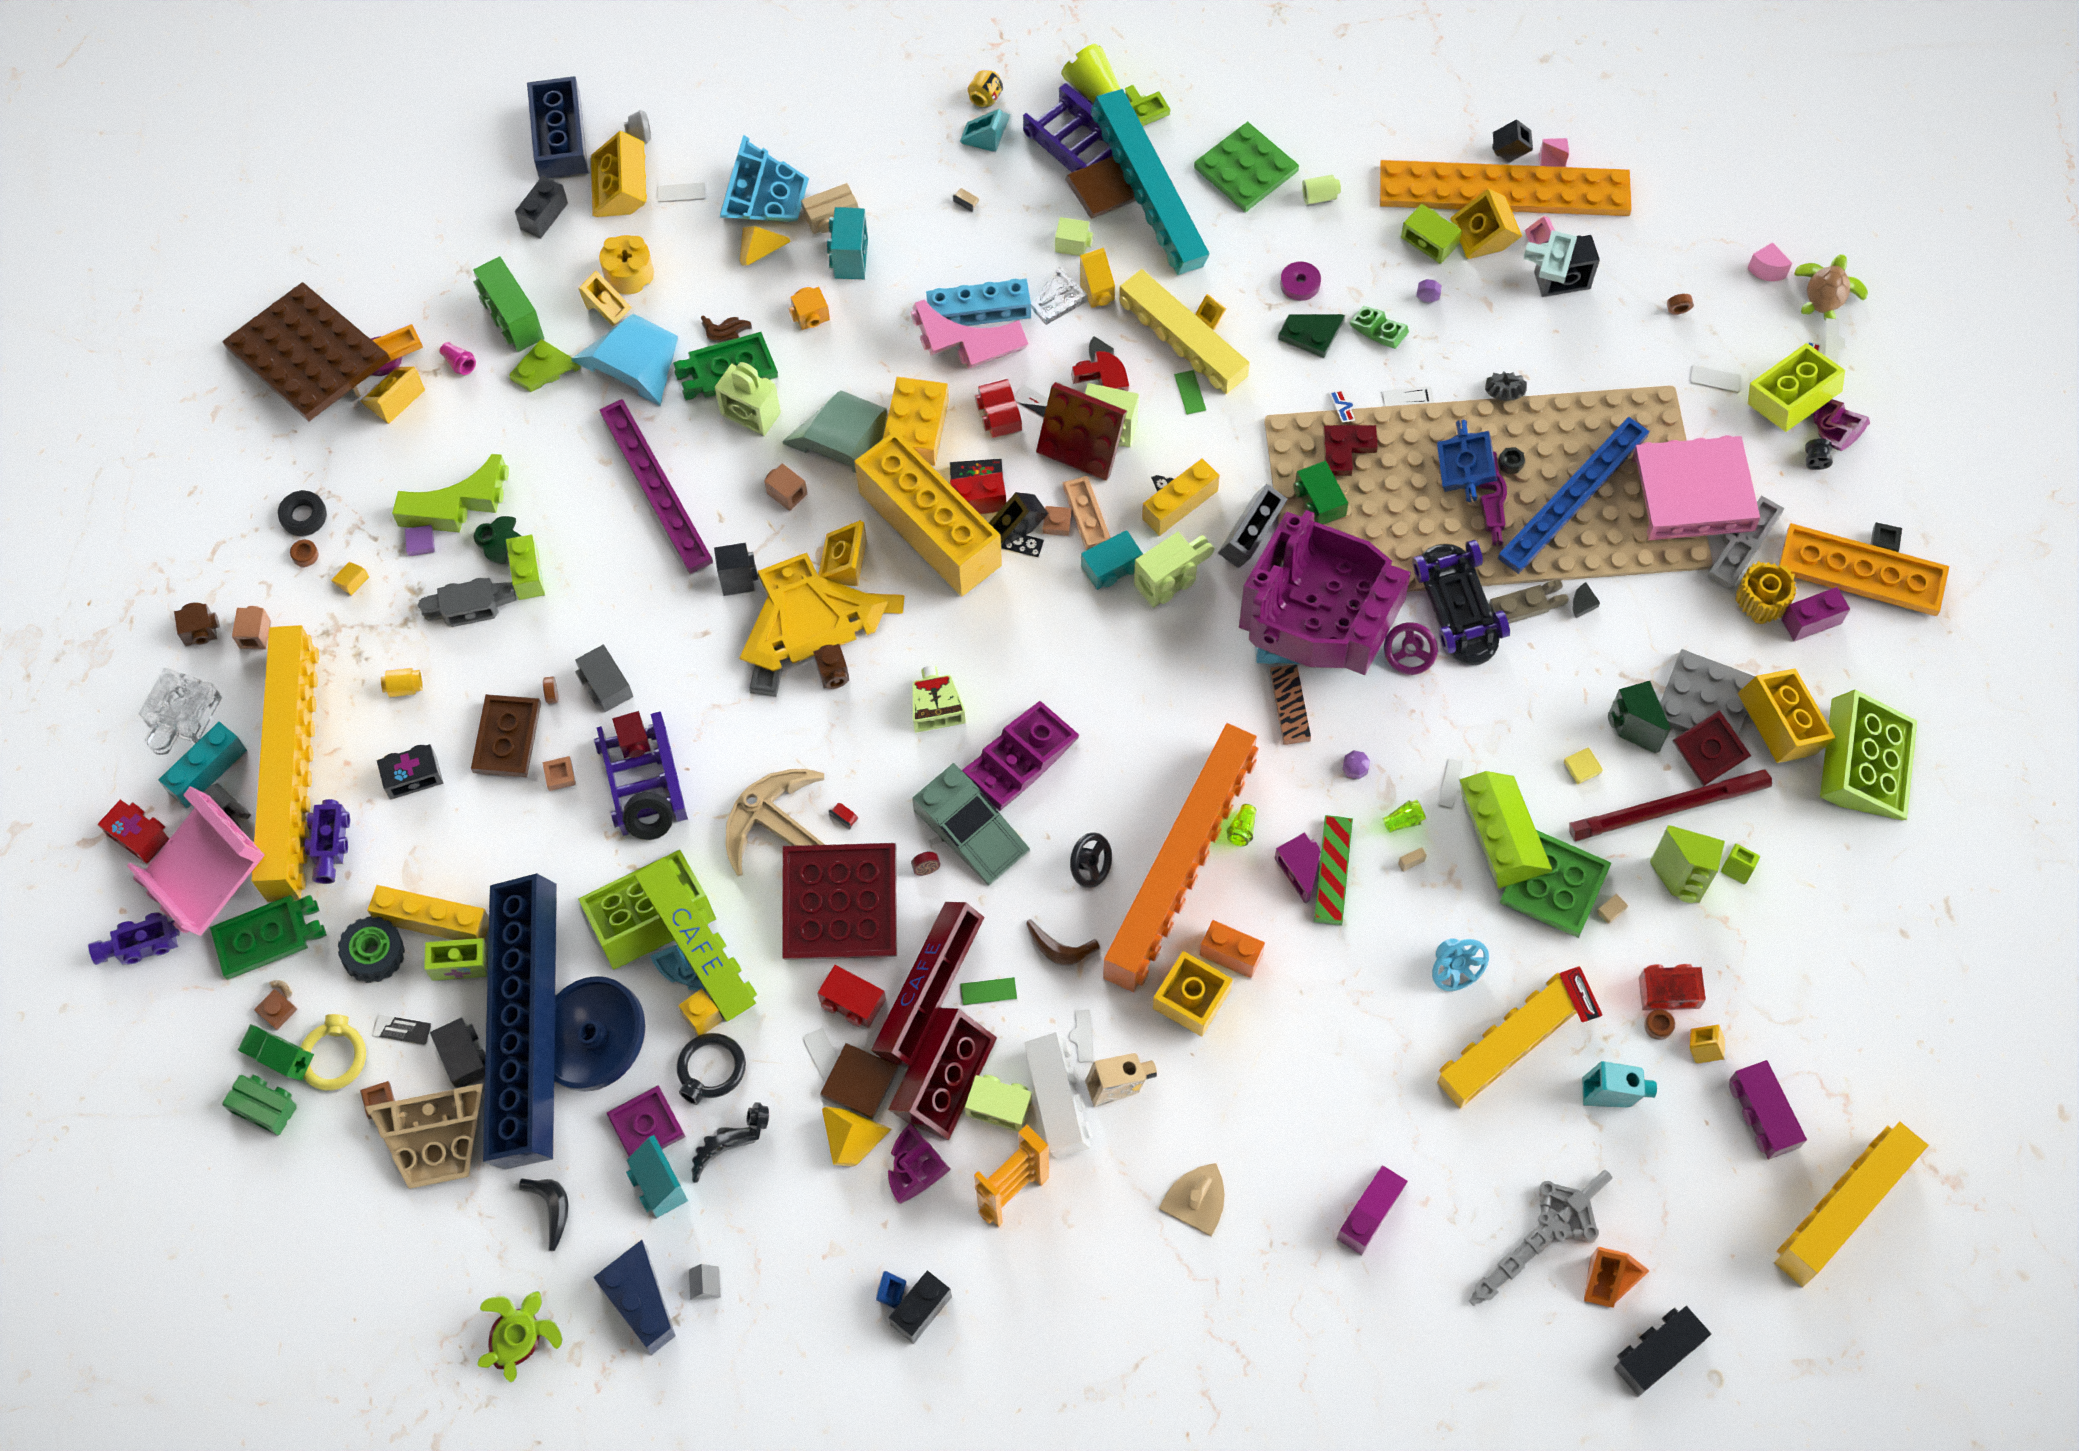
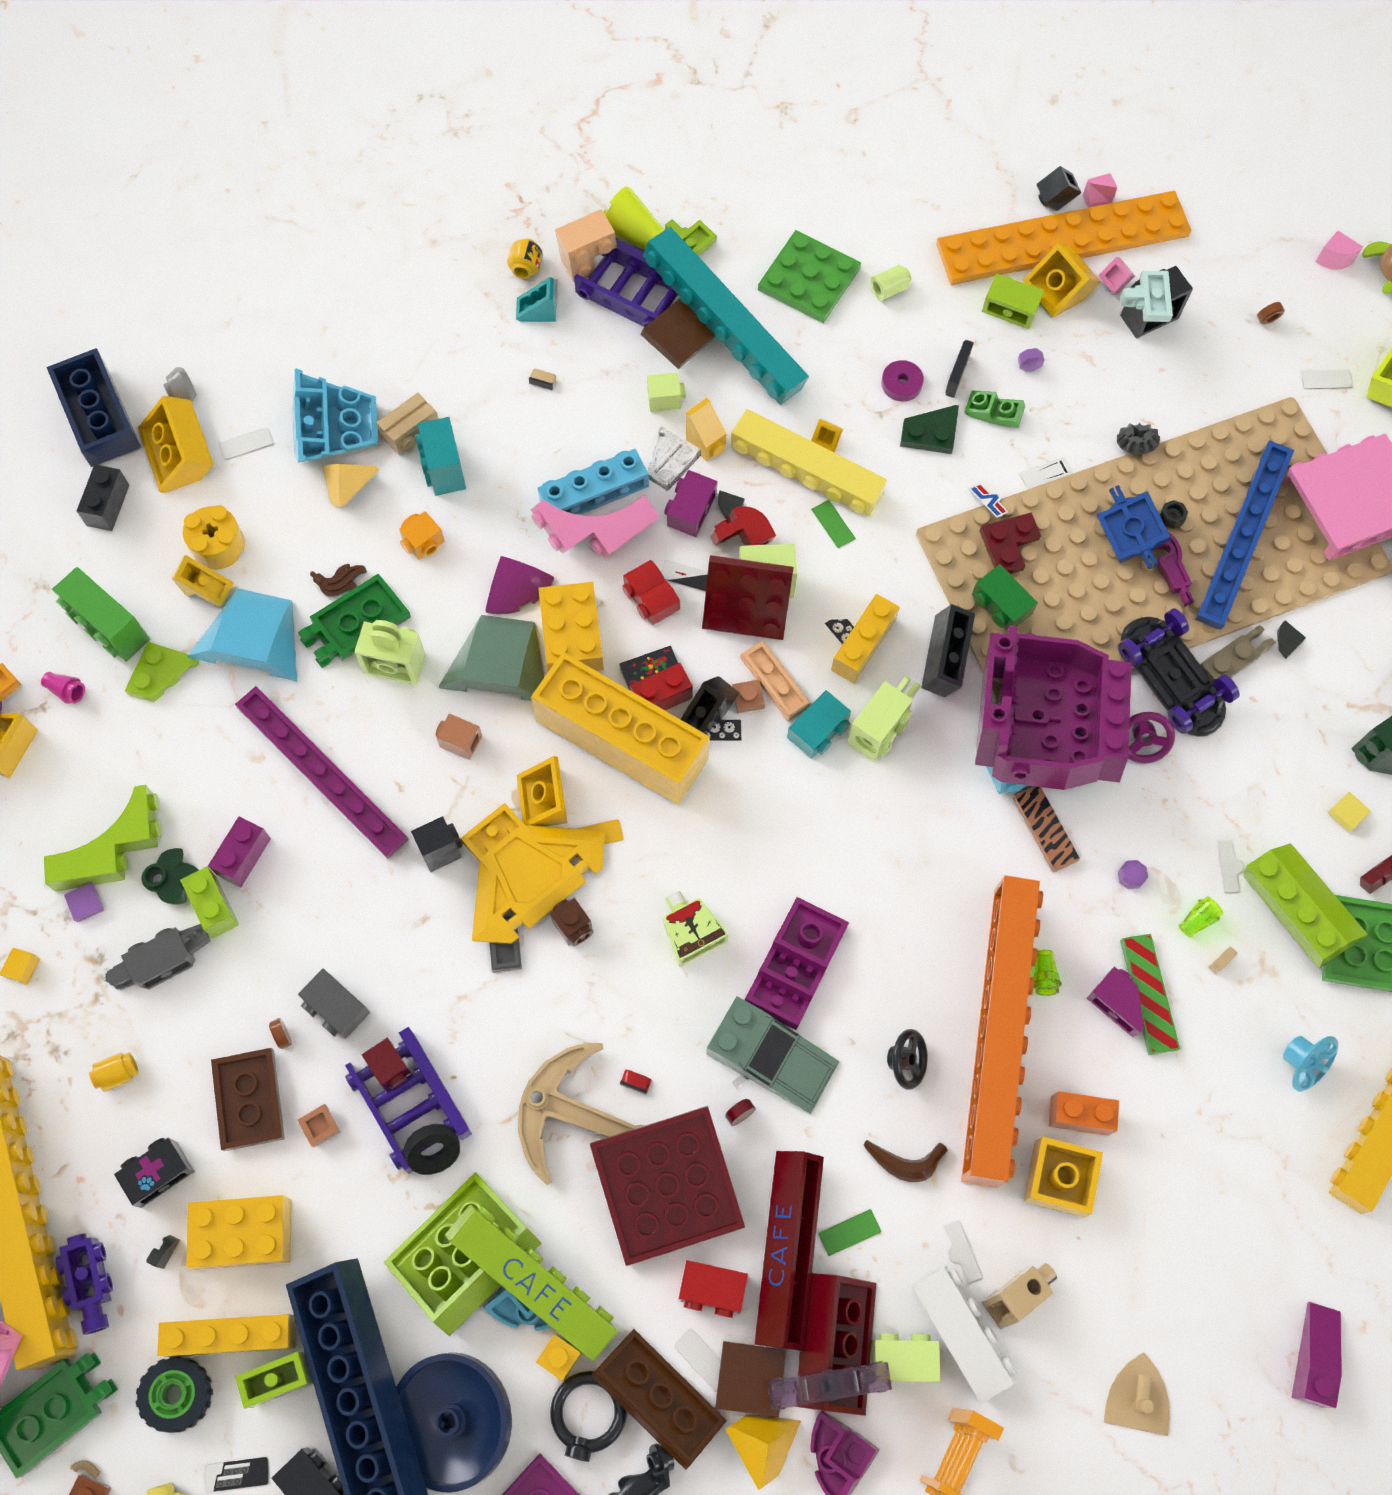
camera: 20 degrees left, 5 degrees up
(396, 838) = (160, 1257): none -> pearl dark grey tile
(464, 838) = (239, 1232): none -> yellow brick
(564, 532) = (239, 851): none -> magenta brick
(774, 1069) = (659, 1398): none -> reddish brown tile
(878, 372) = (515, 586): none -> magenta brick
(919, 1089) = (829, 1385): none -> piece
(1041, 84) = (583, 241): none -> light nougat brick
(1063, 340) = (691, 503): none -> magenta brick
(1357, 282) = (959, 368): none -> black tile

